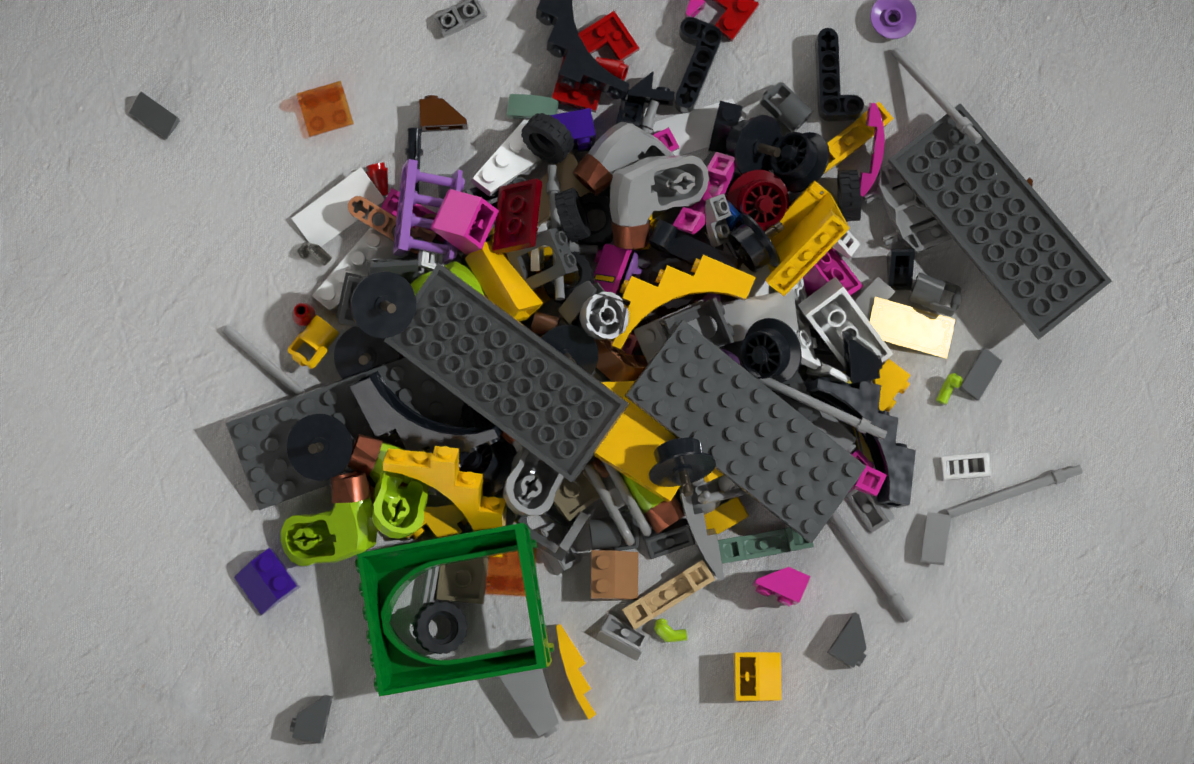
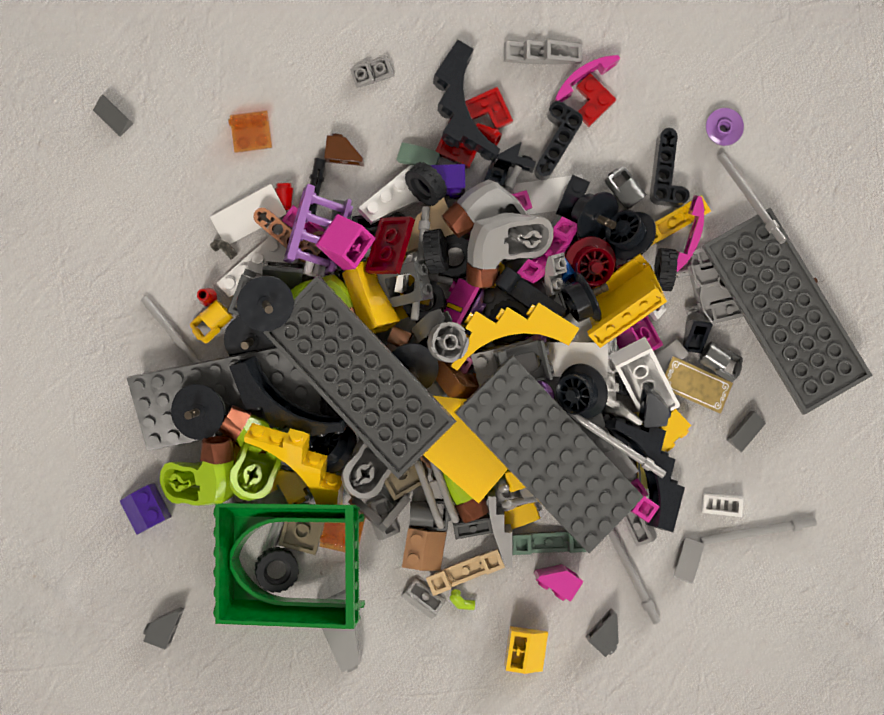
camera: 10 degrees right, 5 degrees up
(572, 662) = (379, 615): yellow slope -> none
(681, 464) = (491, 476): black piece -> none
(952, 380) = (718, 437): lime arm -> none

